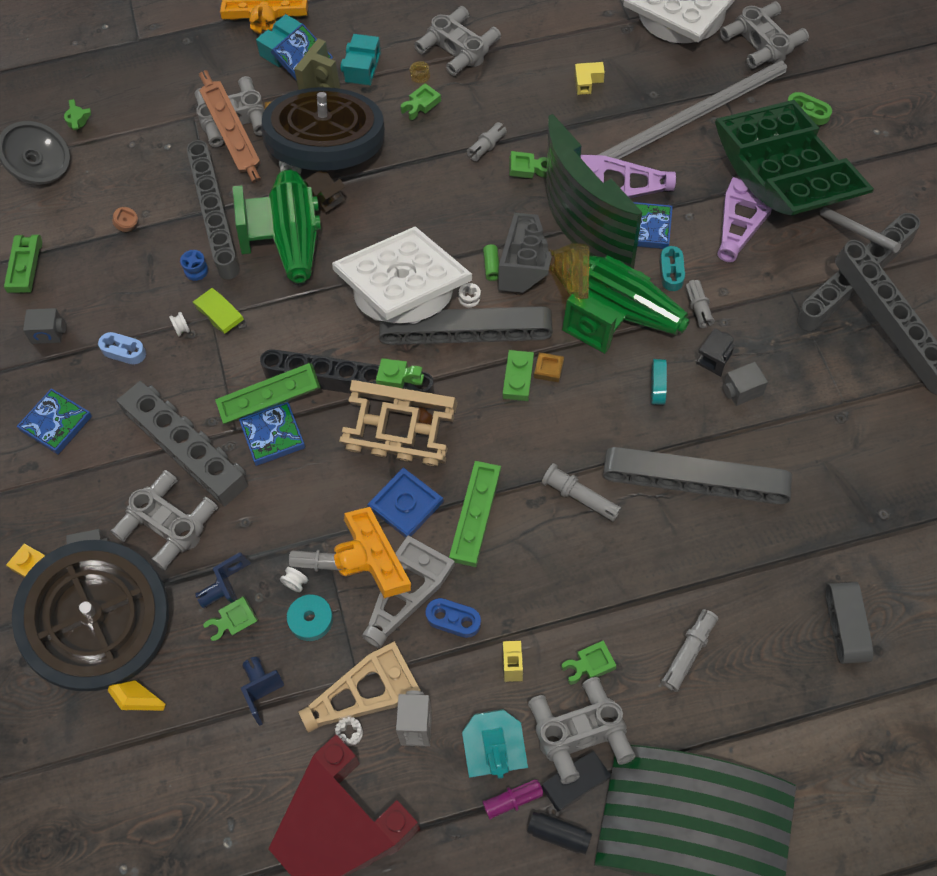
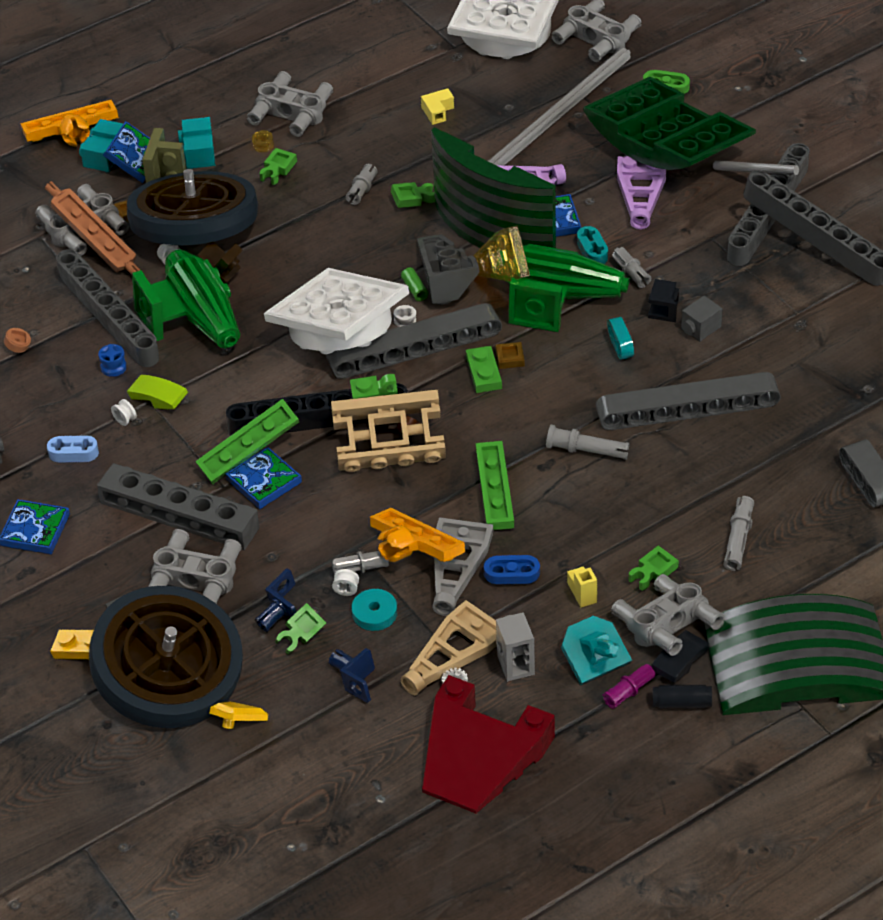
camera: 20 degrees left, 15 degrees down
(405, 503) = (423, 496): blue tile -> none

